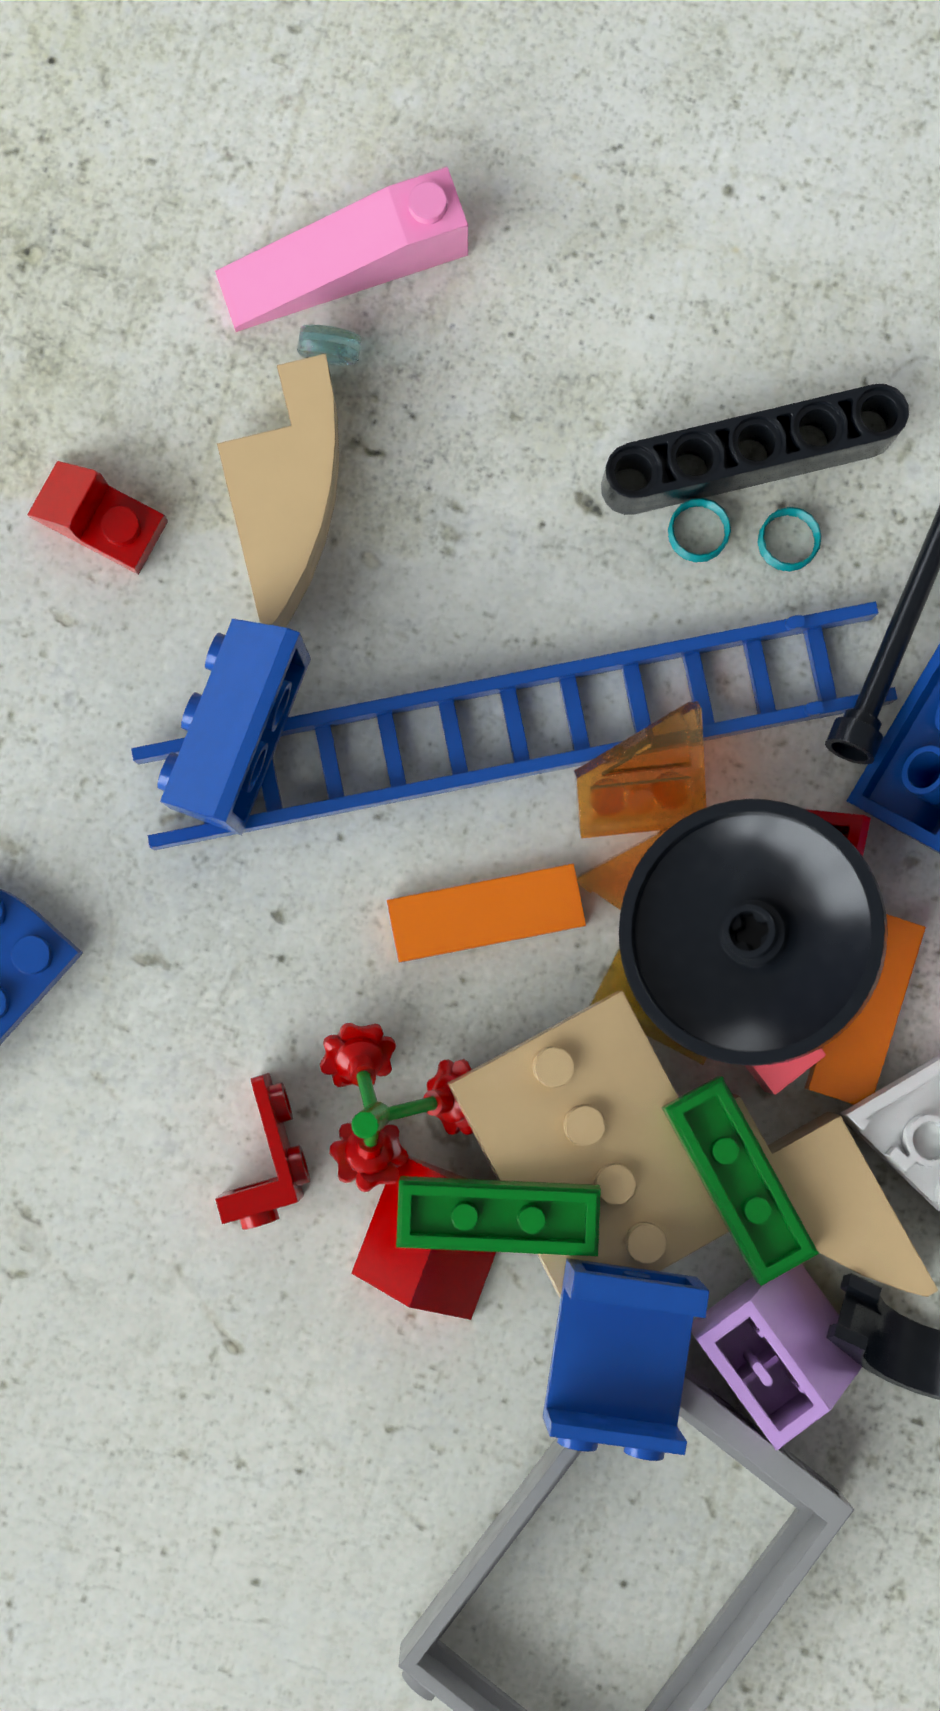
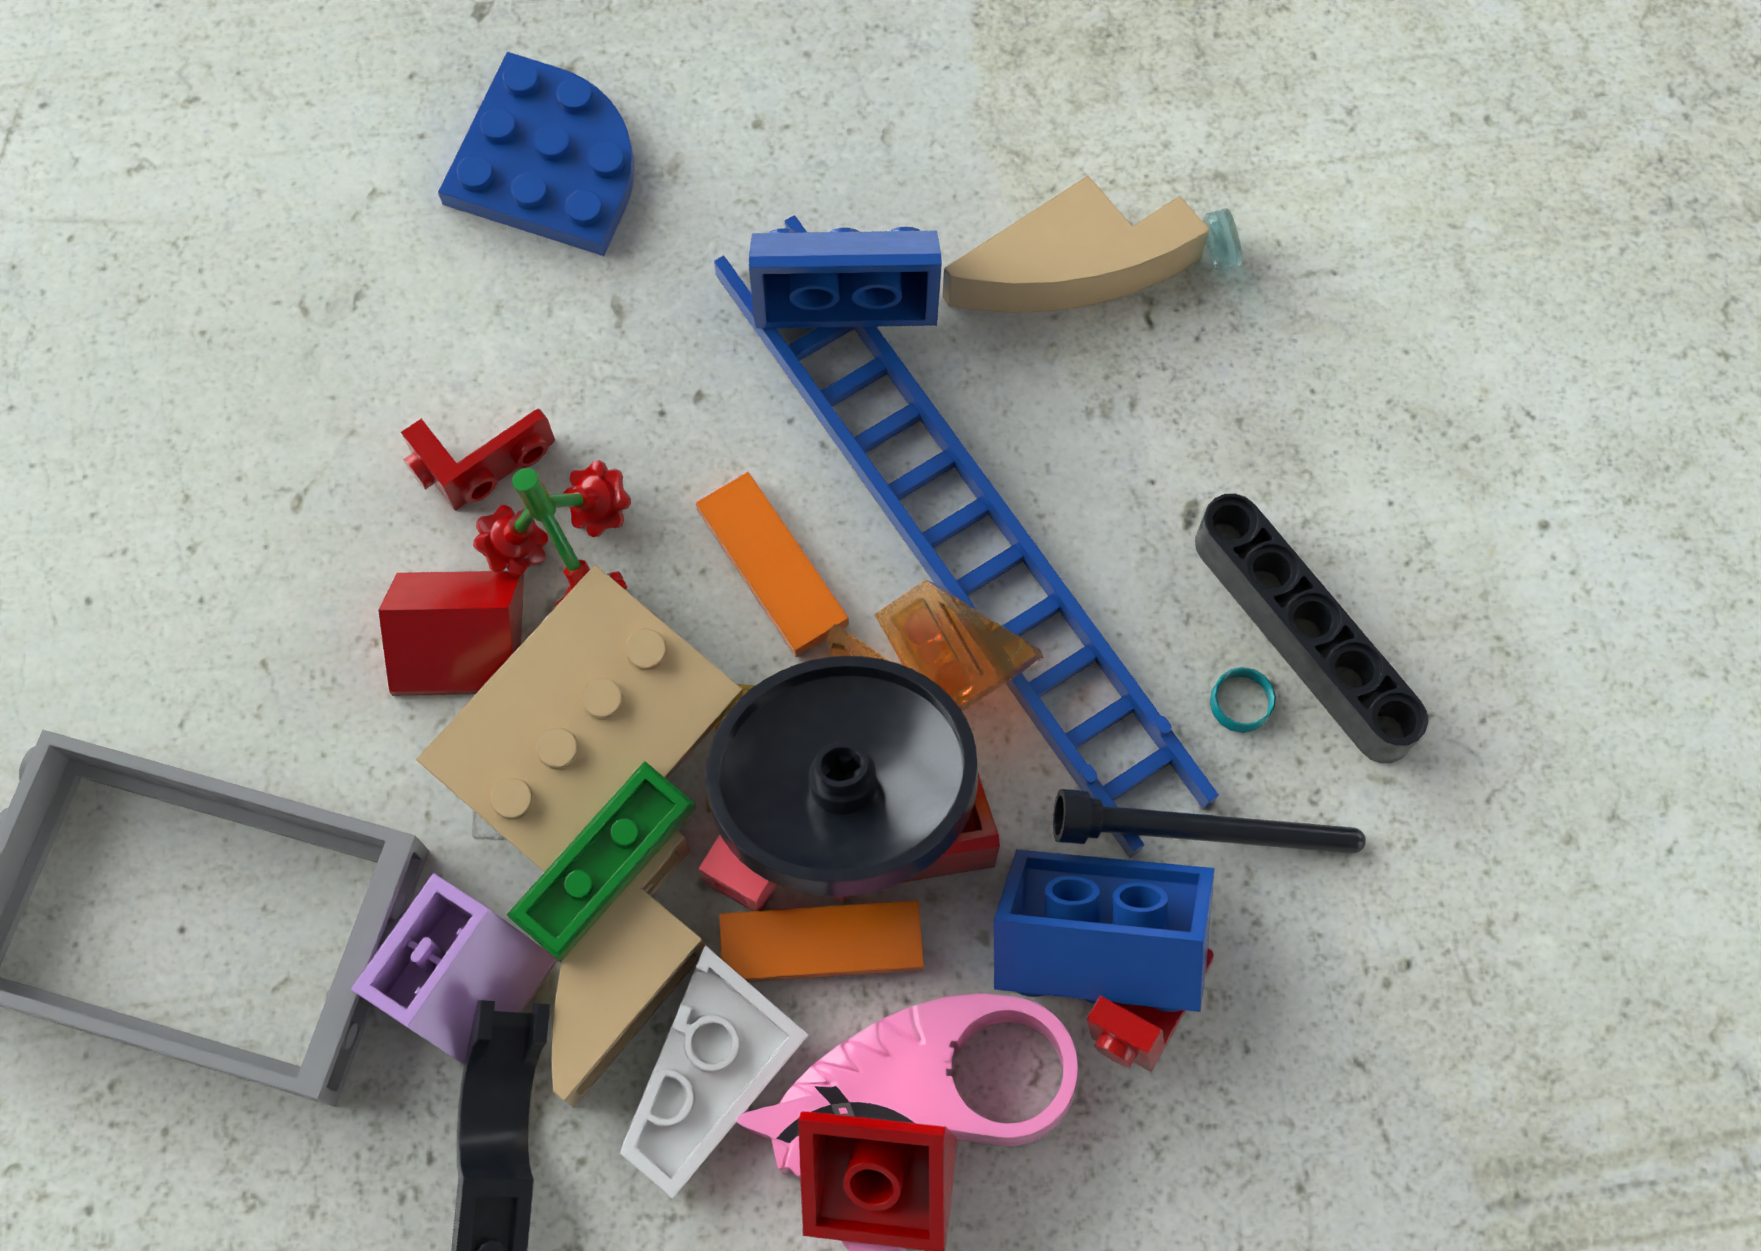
camera: 70 degrees right, 15 degrees down
(98, 516) = (985, 127): red slope -> none
(349, 251) = (1320, 230): bright pink slope -> none
(498, 1216) = (488, 651): green tile -> none
(621, 1358) = (392, 811): blue panel -> none
(717, 509) = (1221, 591): teal axle -> none

